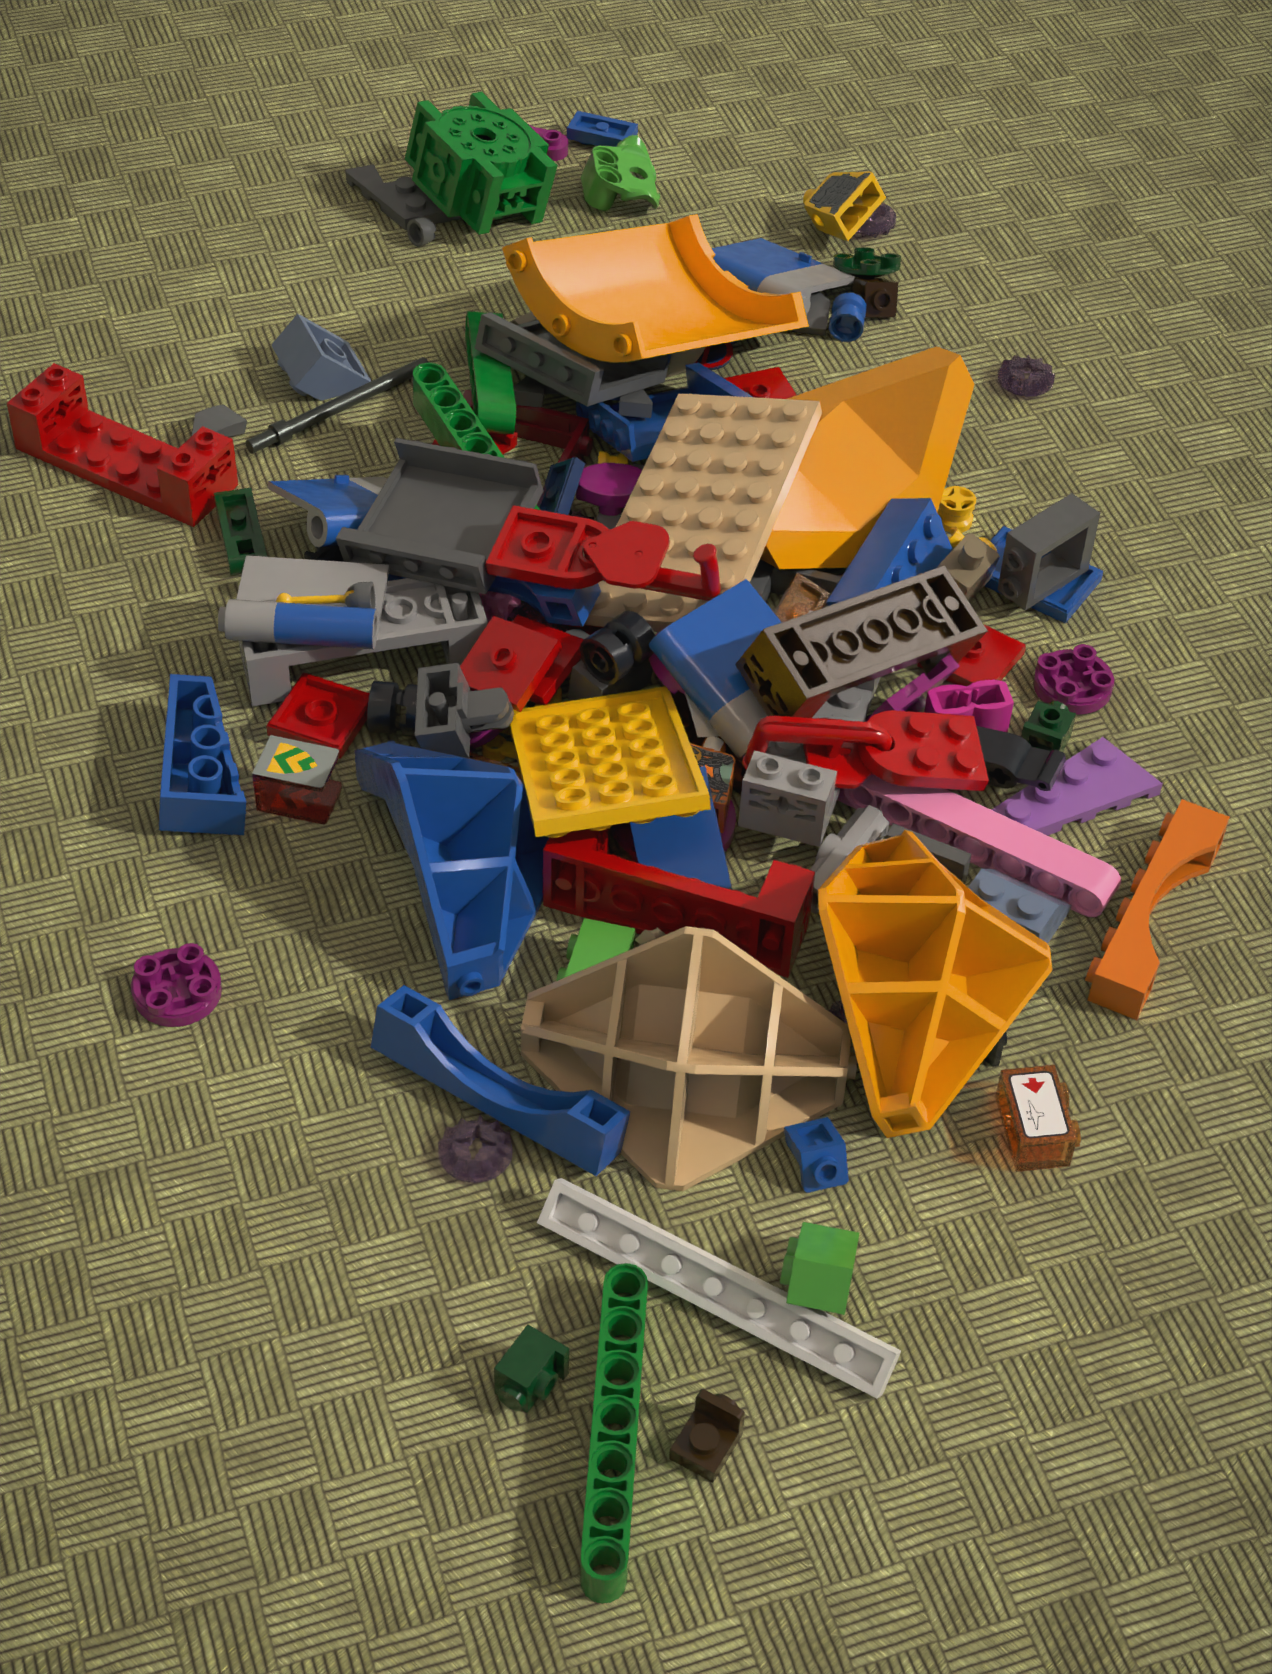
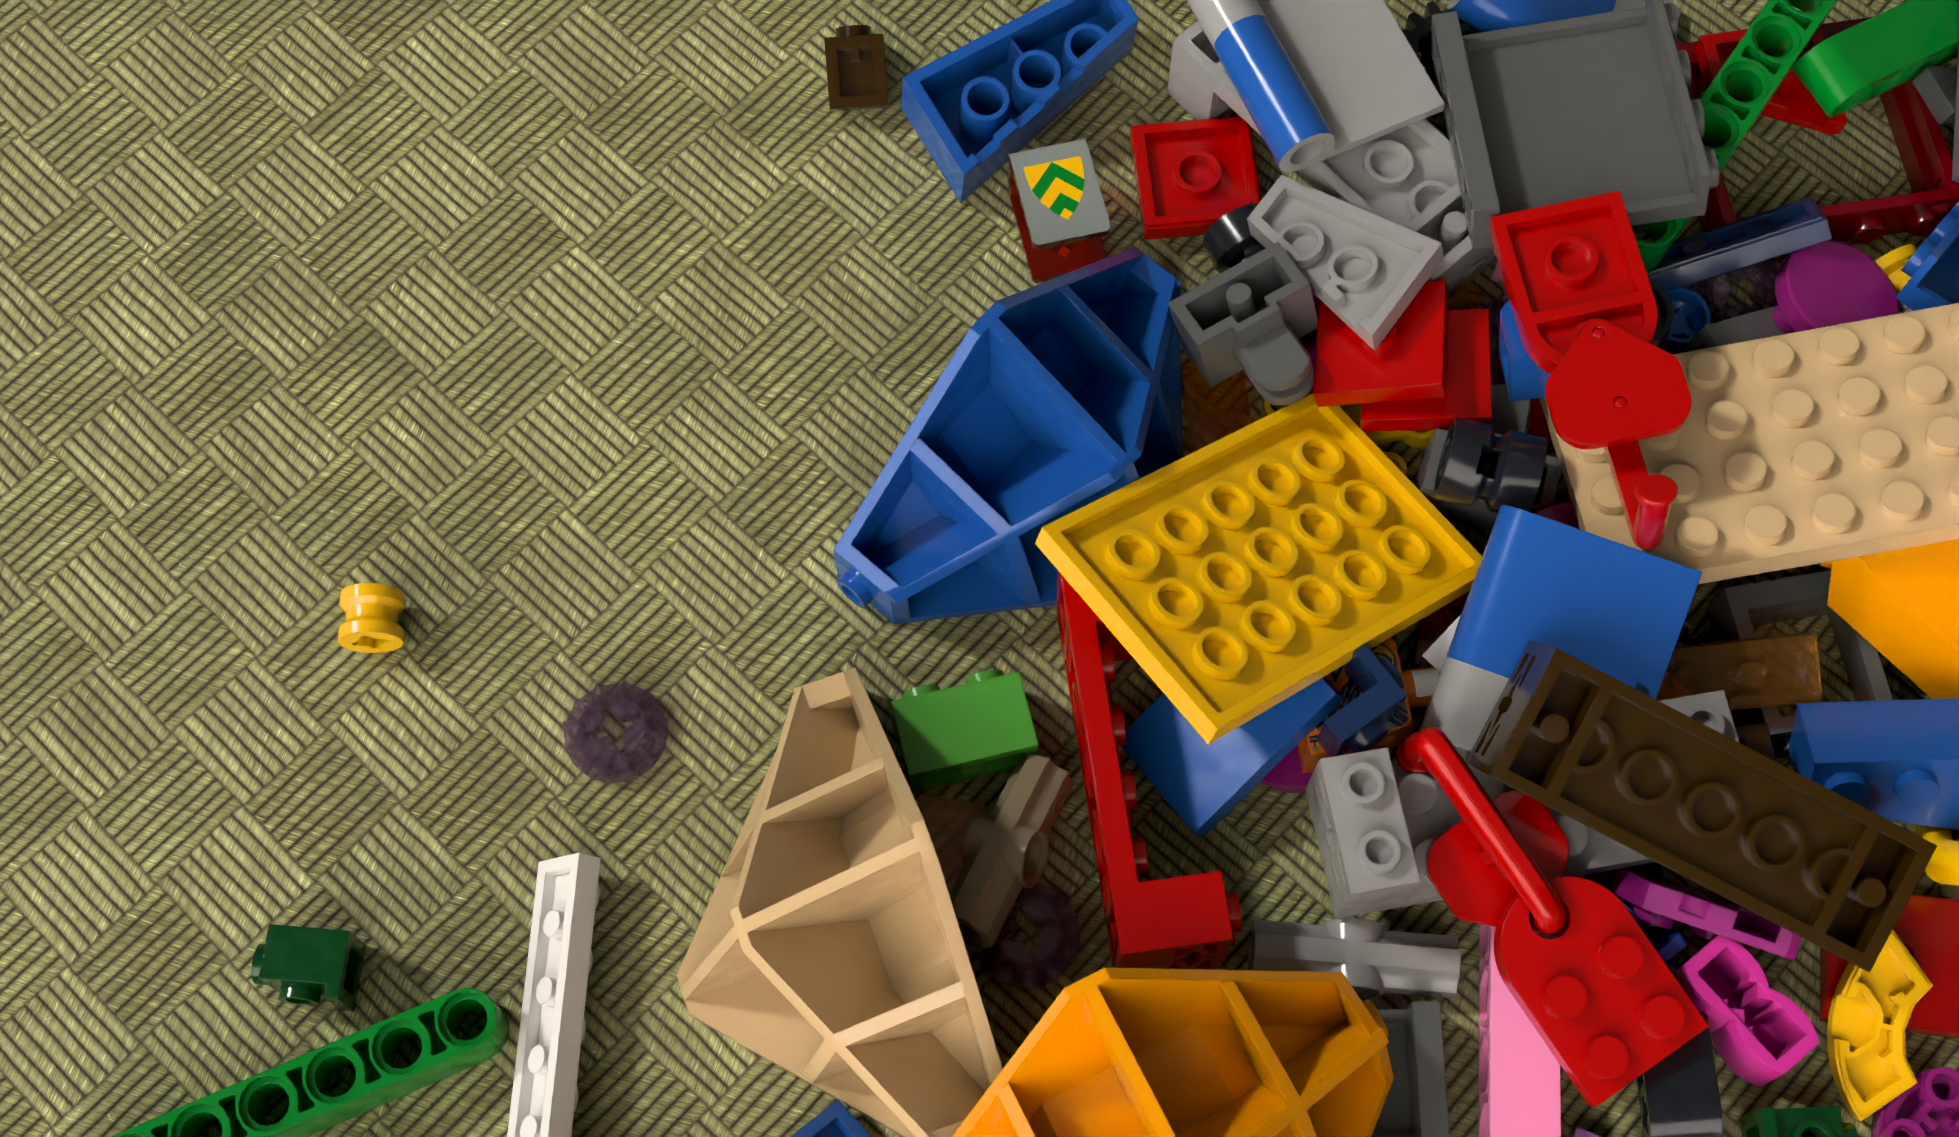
camera: 65 degrees right, 20 degrees up
(116, 835) = (856, 69): none -> dark brown bracket
(176, 986) = (679, 264): magenta tile -> none
(308, 1244) = (371, 618): none -> yellow wheel
(357, 595) = (1345, 104): hinge -> none
(459, 637) = (1350, 256): none -> light grey wing
(571, 1124) = (696, 752): blue arch -> none
(717, 753) = (1363, 720): none -> dark blue bracket
(991, 662) = (1869, 1029): none -> yellow tile

